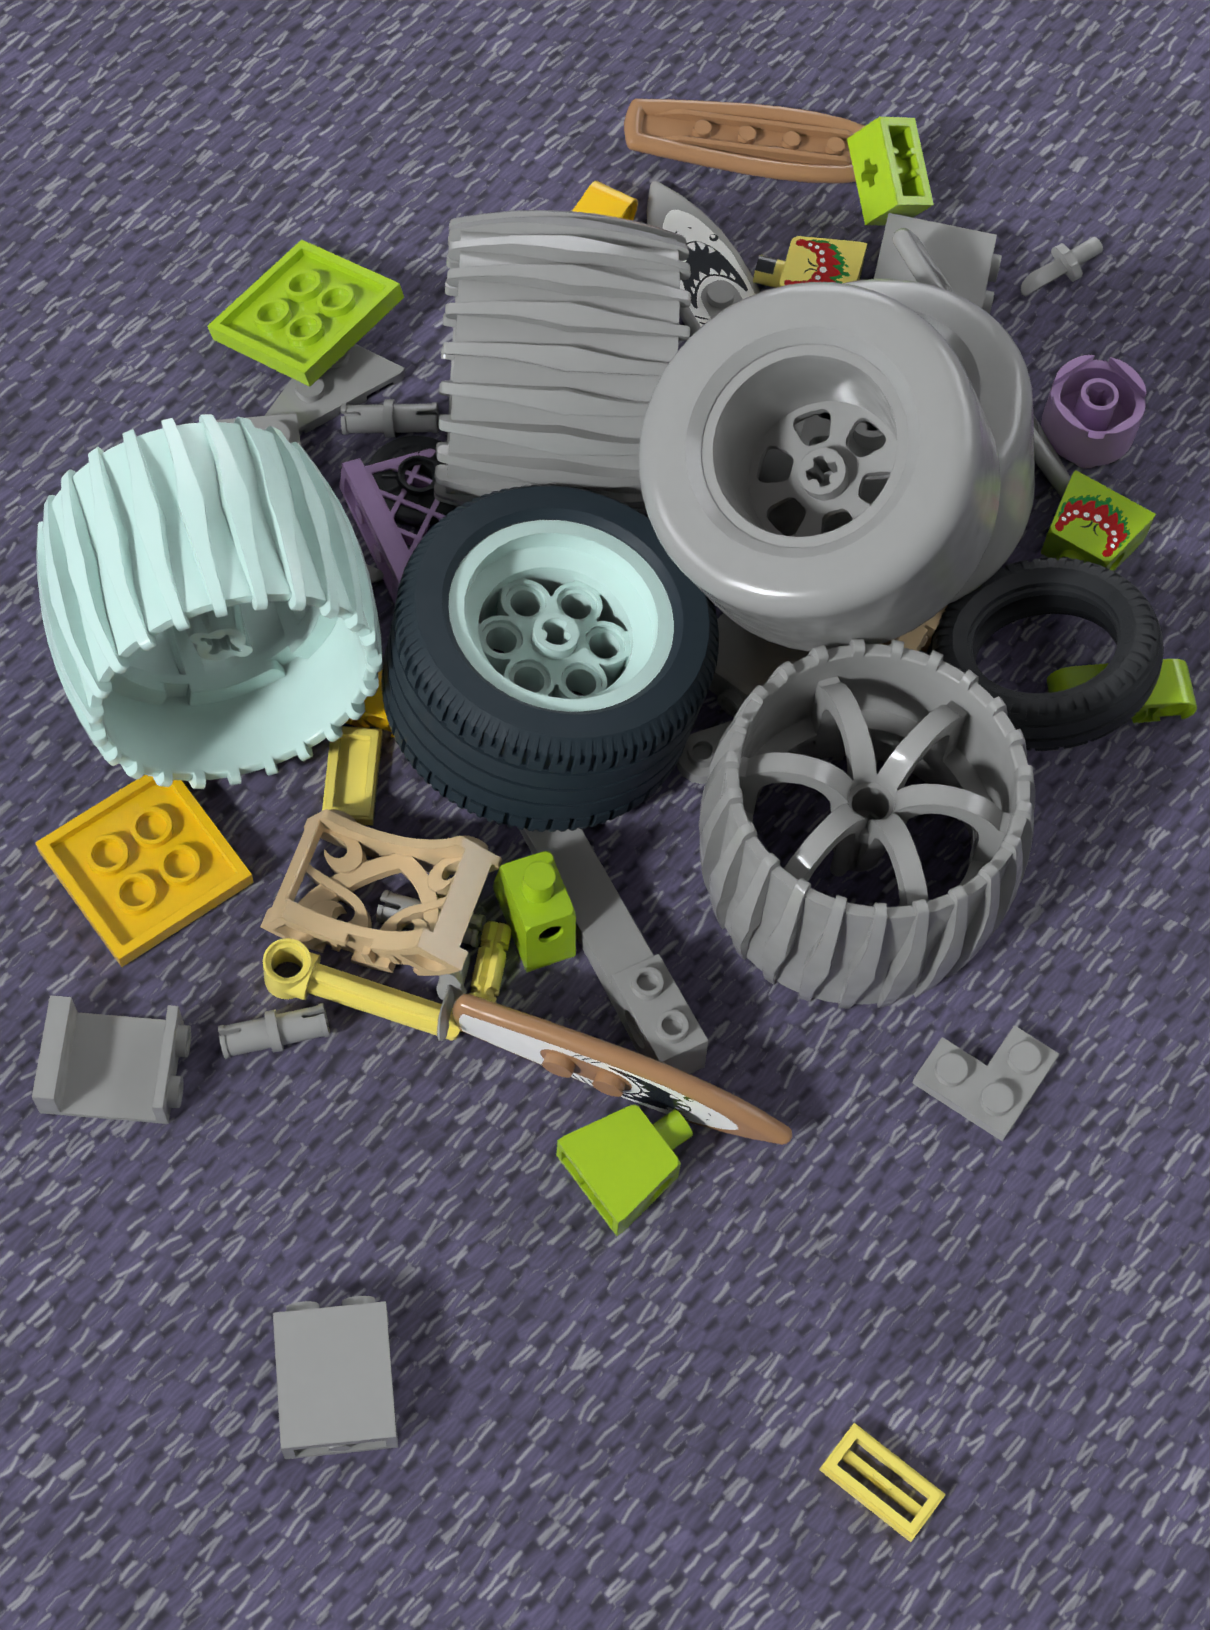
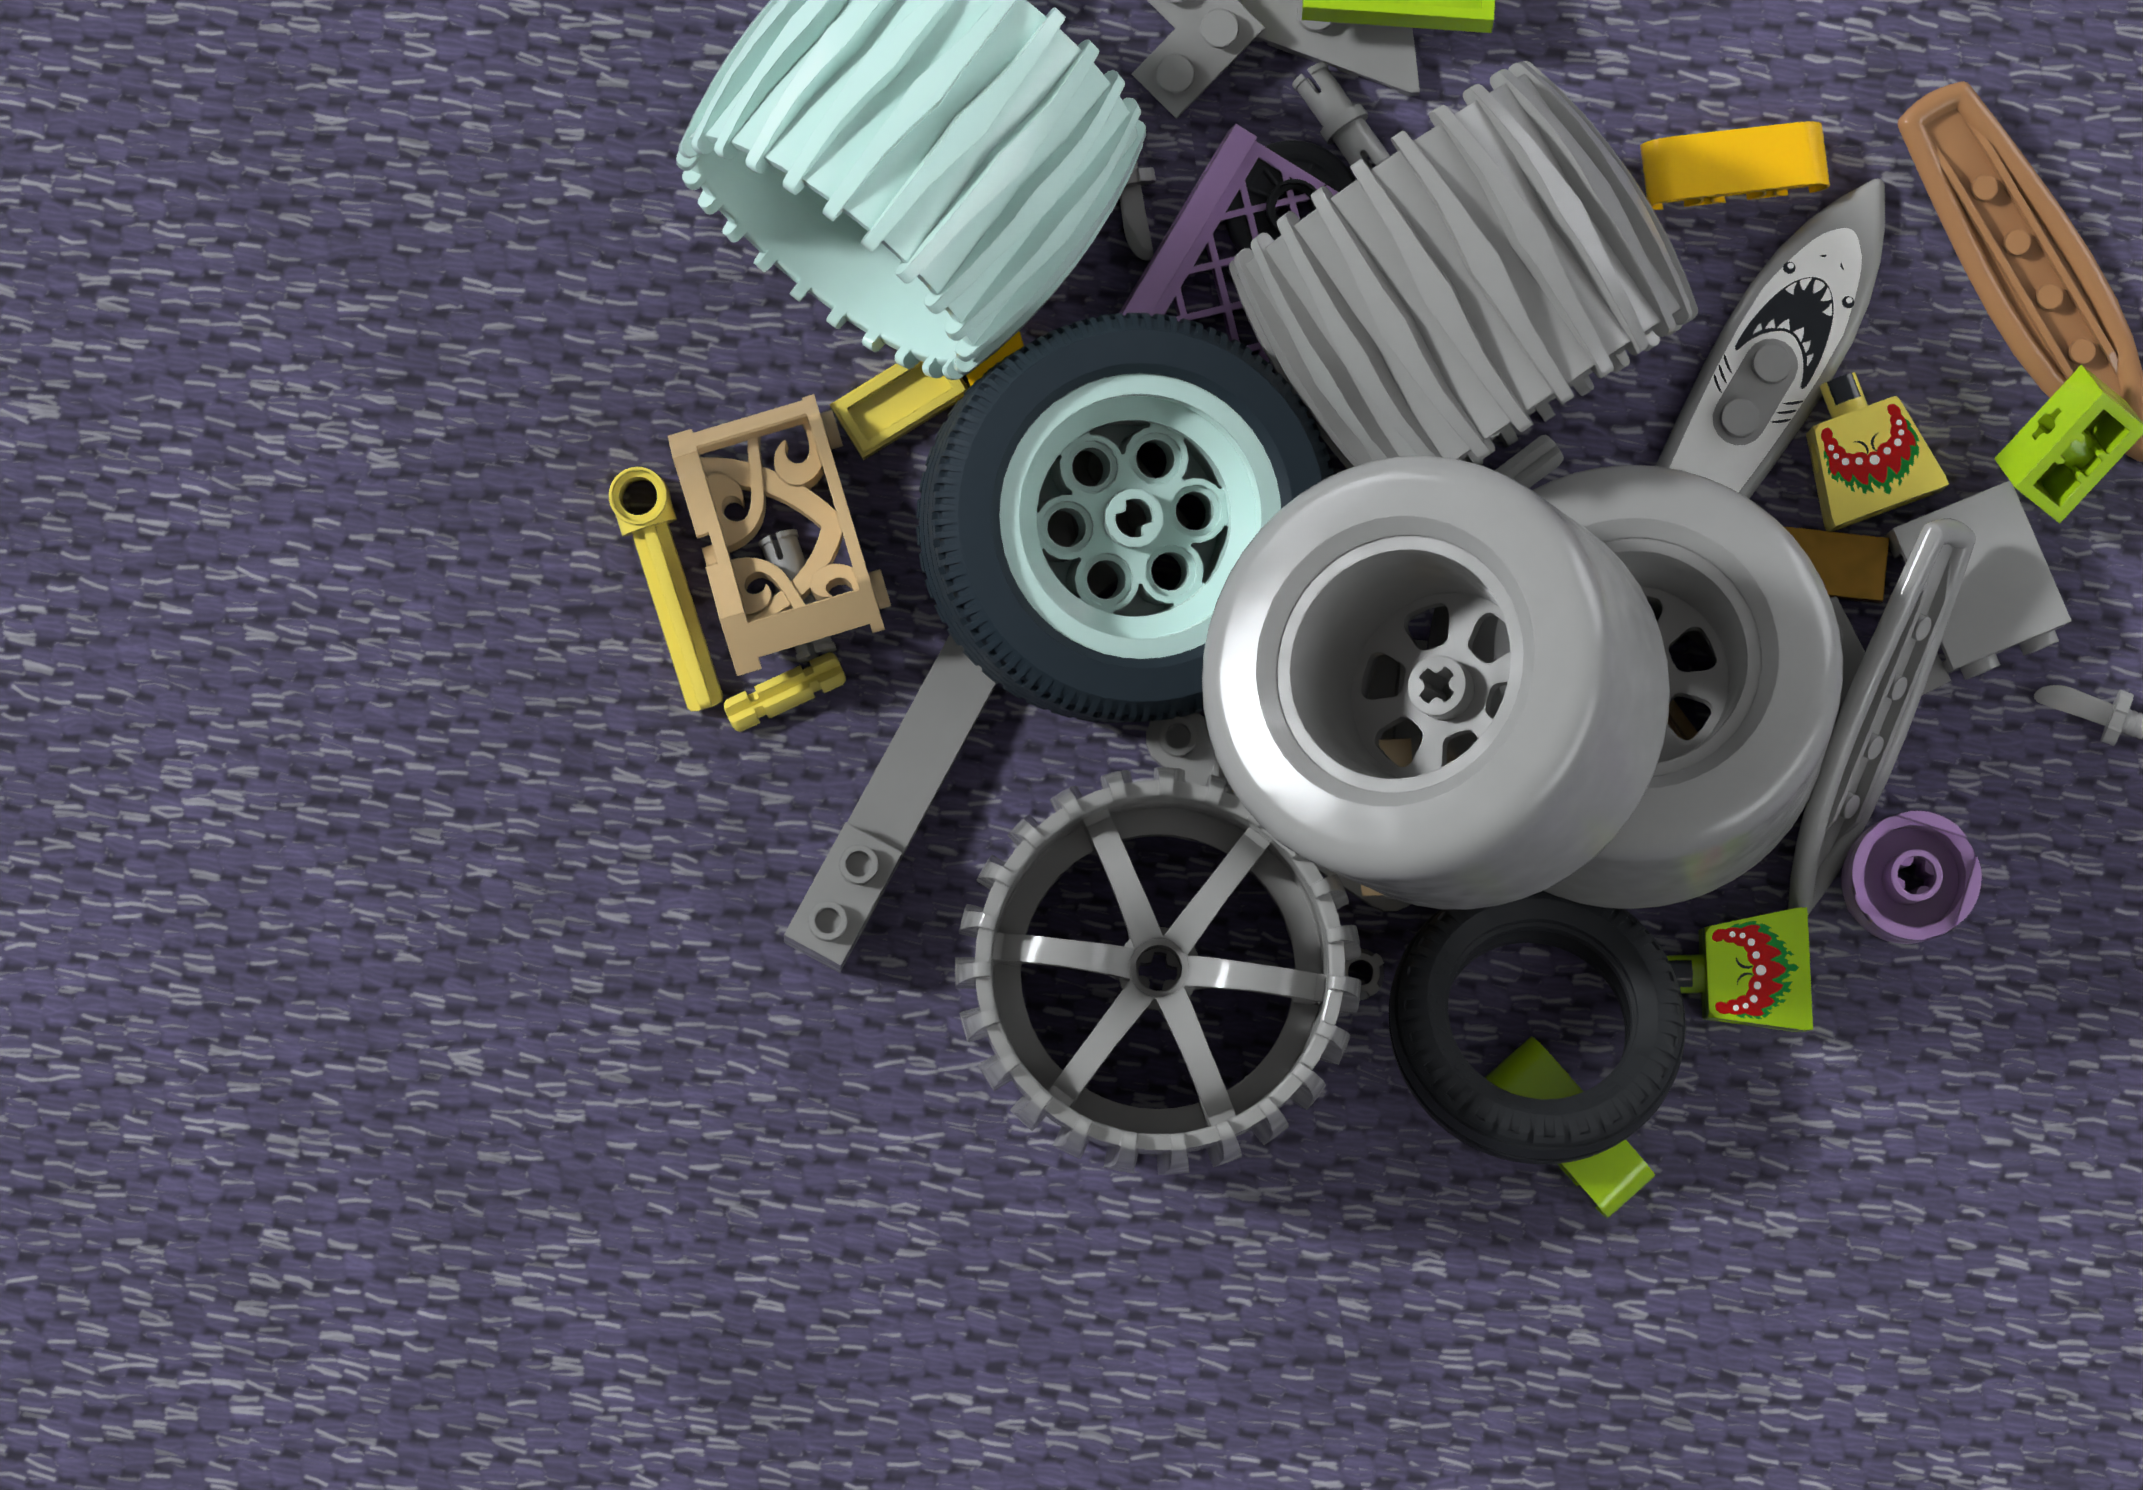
camera: 60 degrees right, 20 degrees up
(110, 1064) = (429, 401): light grey panel -> none
(144, 865) = (646, 274): yellow plate -> none
(274, 1031) = (571, 531): light grey pin -> none
(334, 1378) = (276, 842): light grey panel -> none
(449, 989) = (726, 676): light grey piece -> none
(534, 901) = (873, 695): lime torso -> none
(615, 1070) = (753, 897): medium nougat piece -> none
(624, 1161) = (677, 966): lime torso -> none
(870, 1500) = (538, 1472): light yellow tile -> none
(989, 1093) = (1010, 1276): light grey plate -> none

